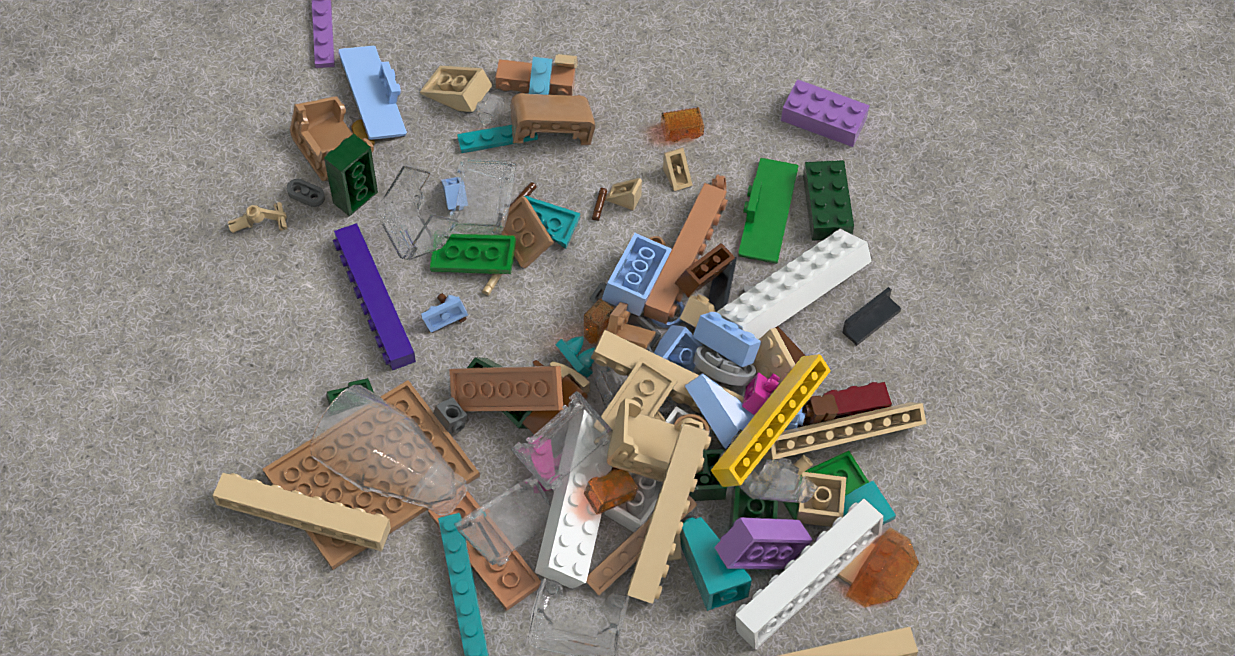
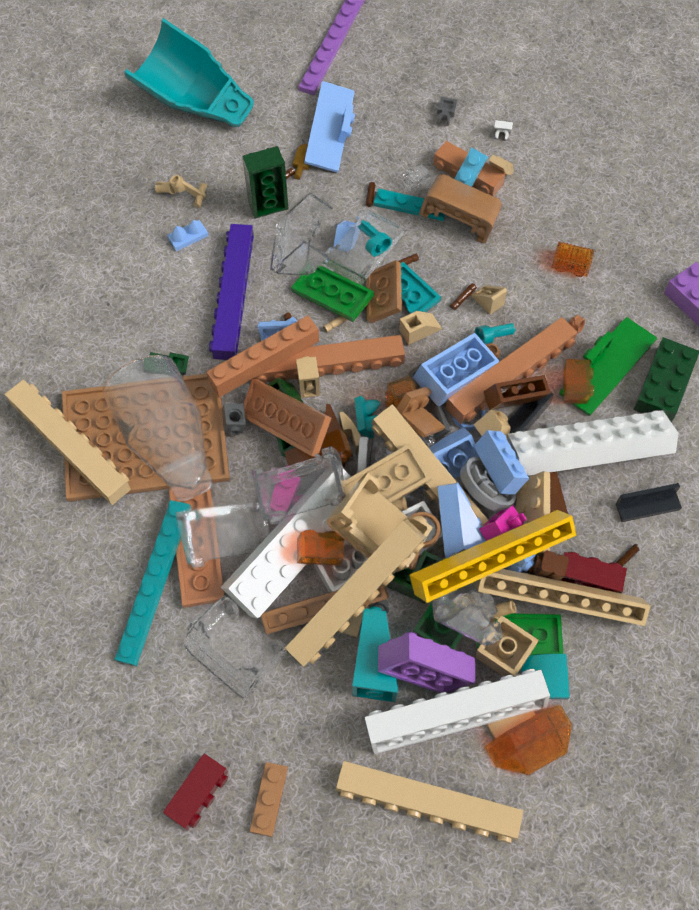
camera: 30 degrees right, 5 degrees up
(202, 102) = (190, 79): none -> teal windscreen
(292, 261) = (187, 235): none -> light blue tile
(307, 192) = (232, 185): dark grey plate -> none
(319, 129) = (272, 130): medium nougat windscreen -> none
(448, 343) = (263, 356): none -> nougat brick
(452, 143) = (370, 194): none -> reddish brown piece
(457, 87) = (400, 150): tan slope -> none
(479, 27) = (446, 109): none -> flat silver plate
(499, 184) = (378, 241): none -> teal piece
(501, 343) = (308, 377): none -> tan slope
(505, 321) = (343, 357): none -> nougat brick
(544, 23) = (502, 127): none -> white tile
(574, 251) = (418, 326): none -> tan slope
(597, 394) = (362, 457): none -> light grey tile
(645, 227) = (488, 333): none -> teal piece
(677, 169) = (546, 295): tan slope -> none
(750, 236) = (577, 382): none -> clear orange brick
(878, 371) = (628, 555): none -> reddish brown piece

